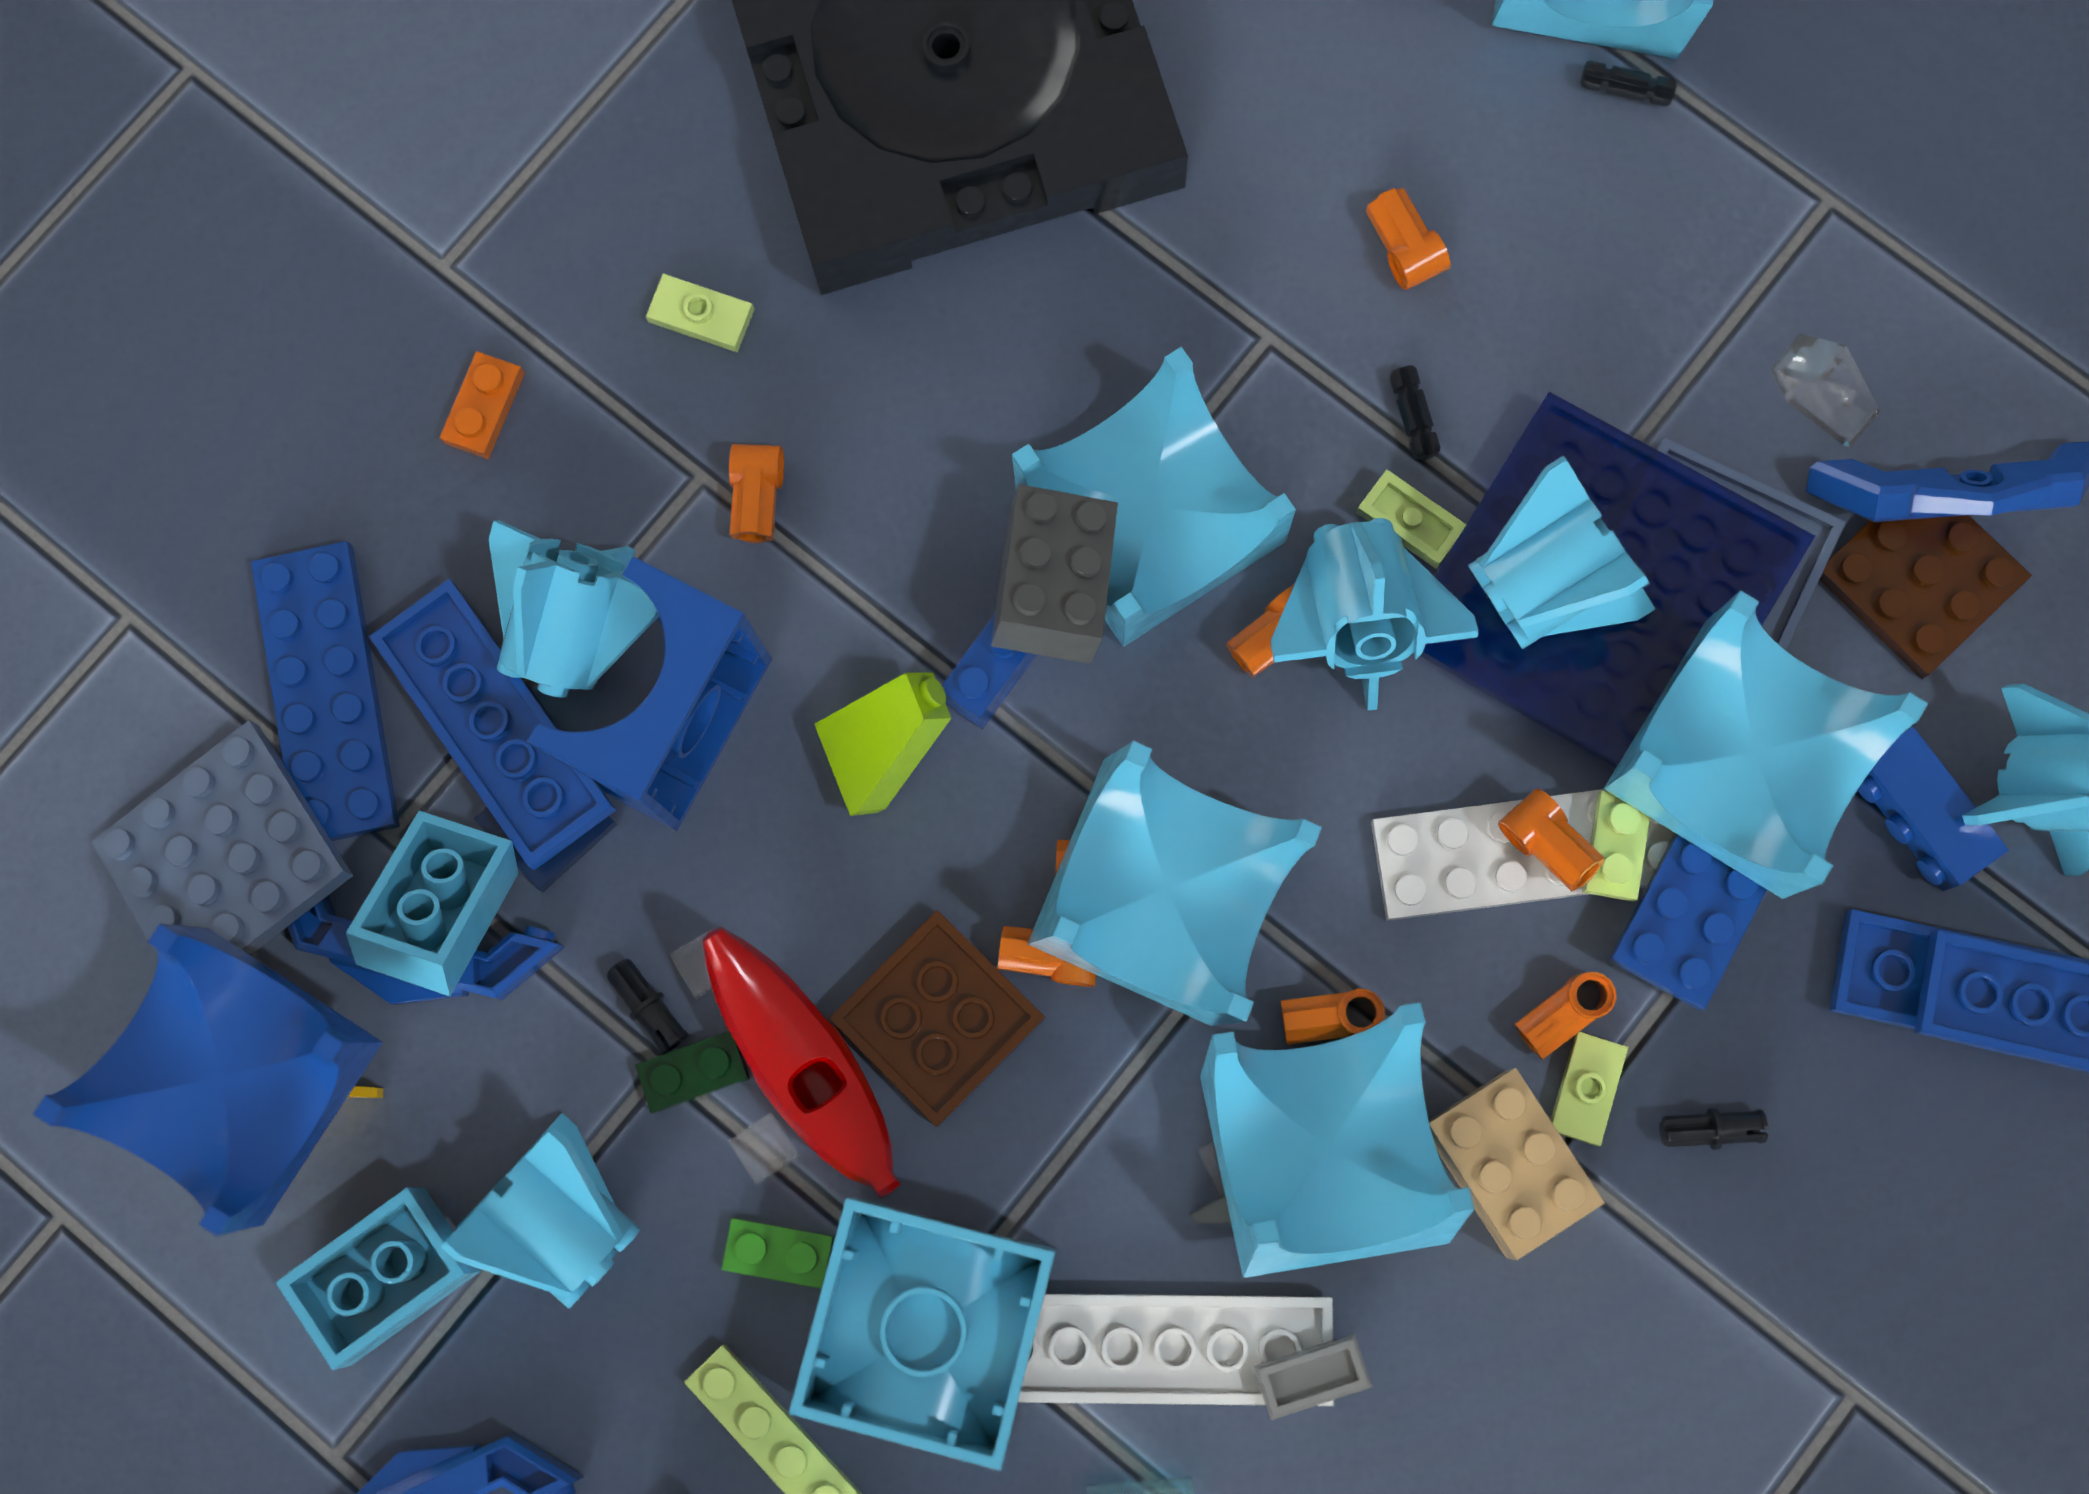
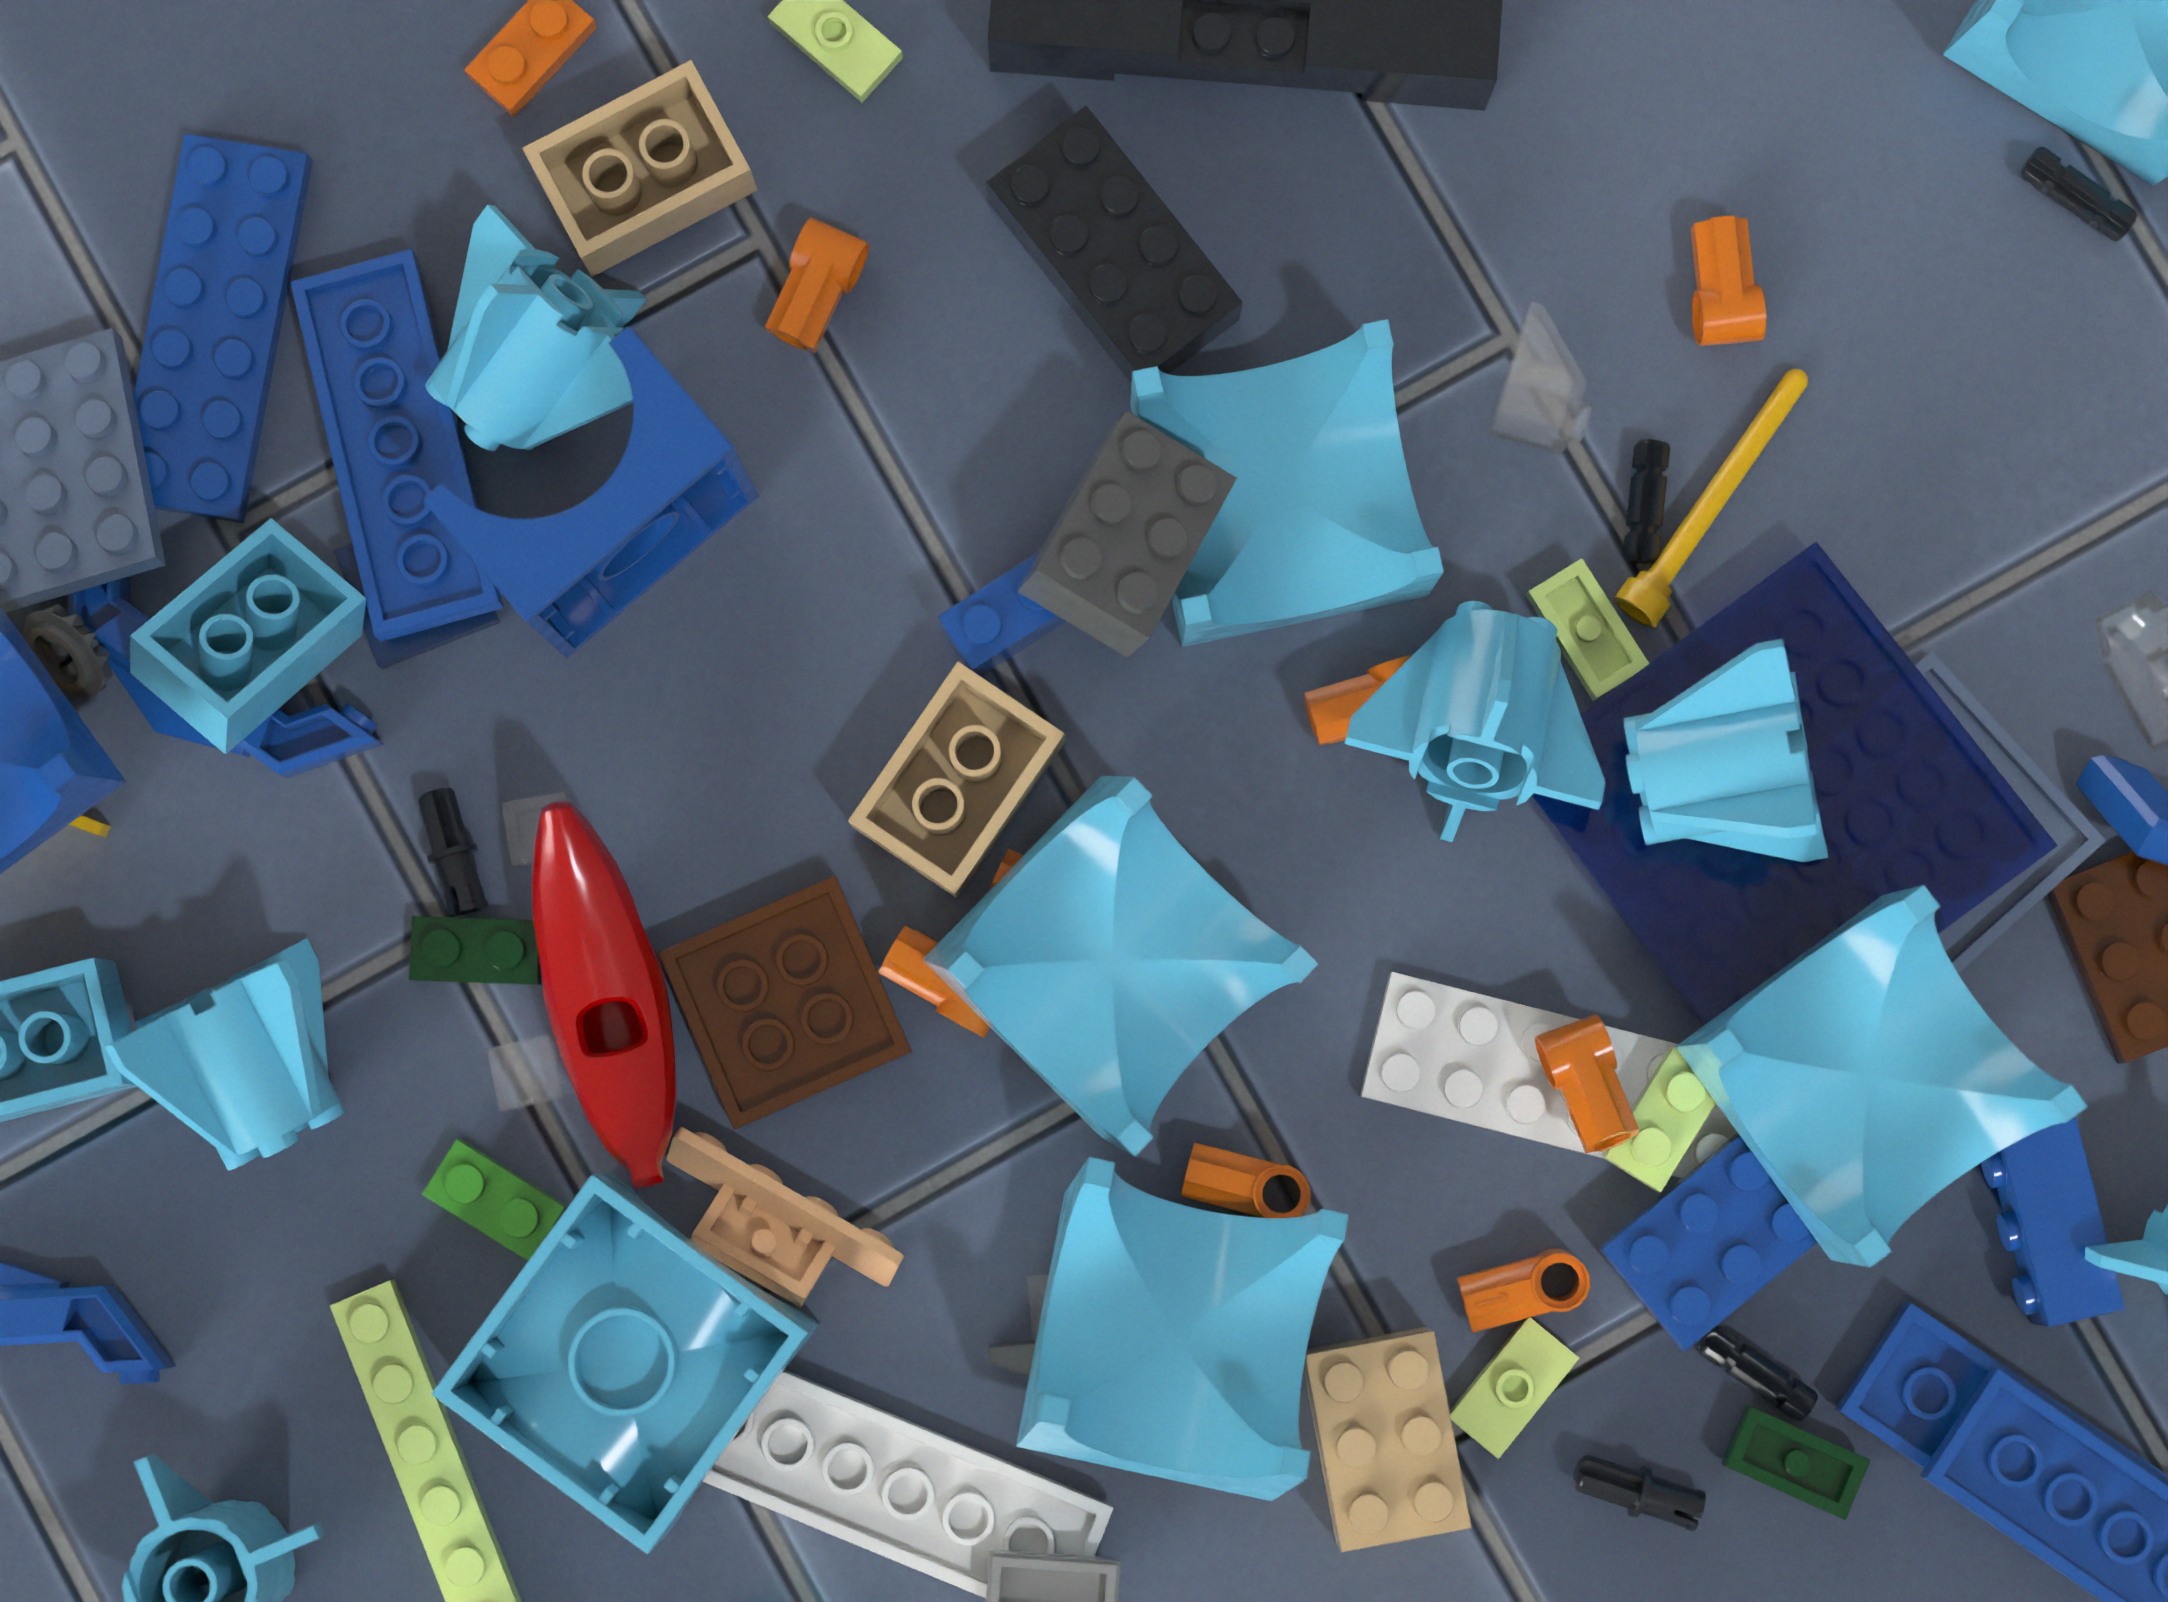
camera: 15 degrees right, 5 degrees up
(297, 960) = (68, 650): none -> dark grey gear
(595, 456) = (641, 168): none -> tan brick
(883, 739) = (848, 649): lime slope -> none
(959, 381) = (1113, 248): none -> black brick
(995, 1190) = (771, 1229): none -> light nougat bracket
(1000, 804) = (957, 780): none -> tan brick
(1307, 362) = (1541, 389): none -> clear slope
(1444, 478) = (1647, 594): none -> yellow piece
(1762, 1006) = (1758, 1373): none -> black axle
(1818, 1060) = (1795, 1462): none -> dark green plate

